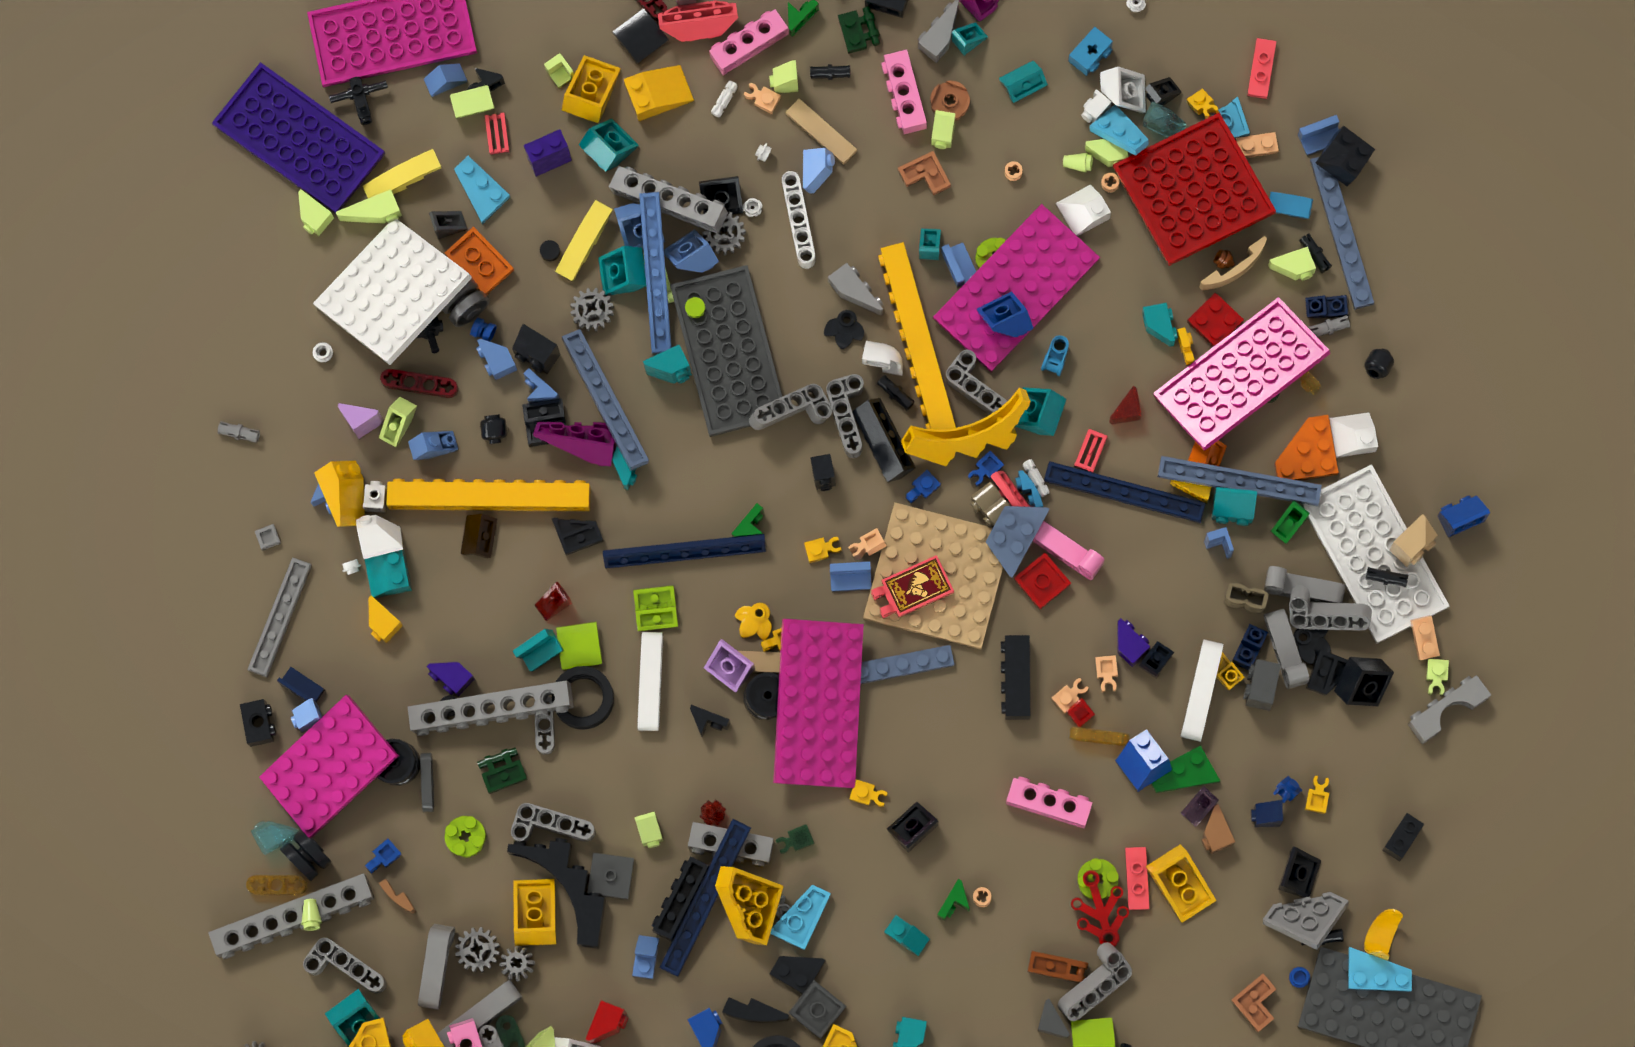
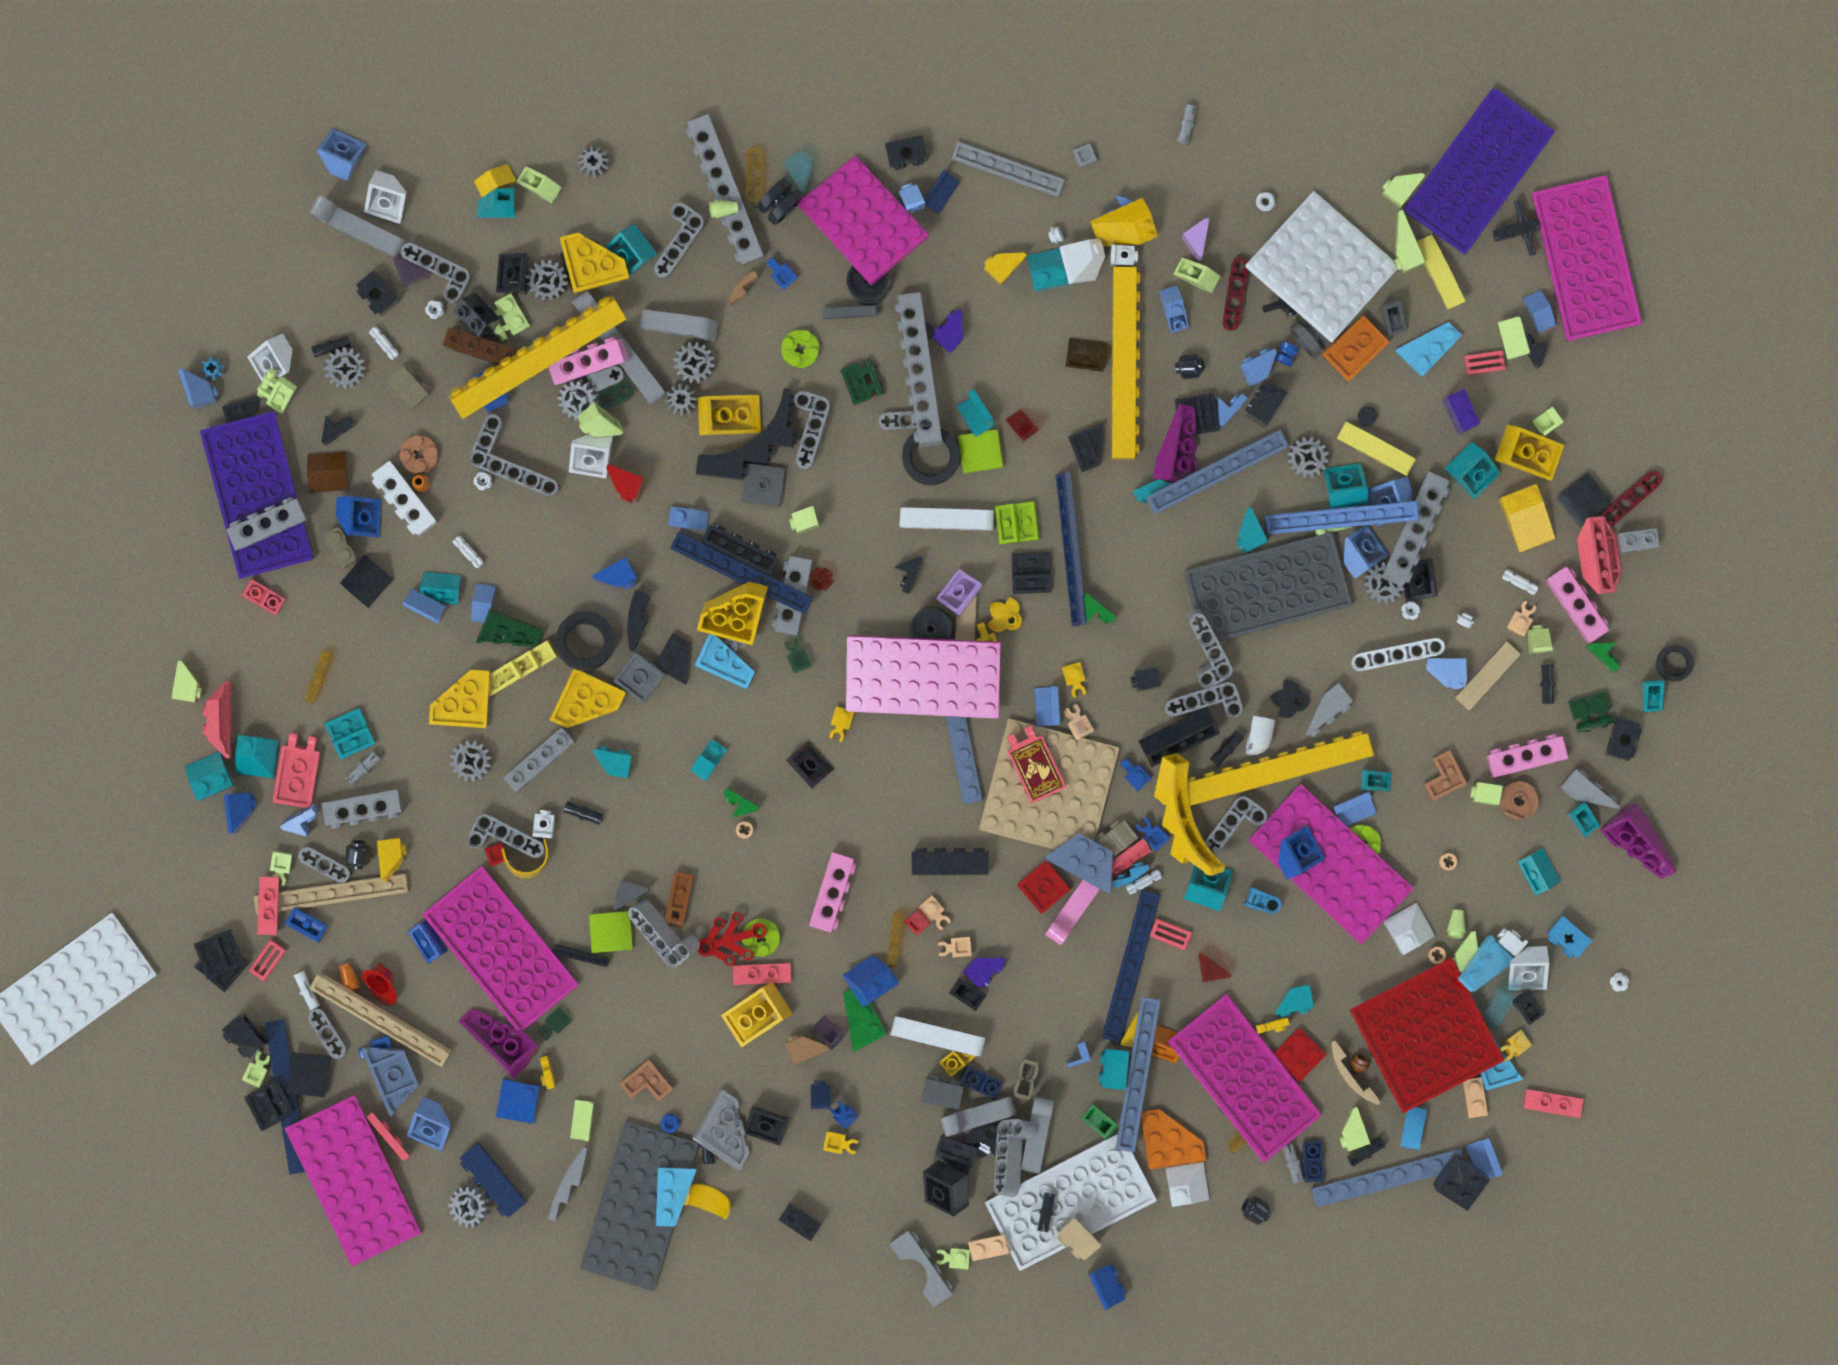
camera: 85 degrees right, 10 degrees up
(695, 307) = (1308, 556): lime tile -> none
(709, 594) = (1031, 573): none -> black slope

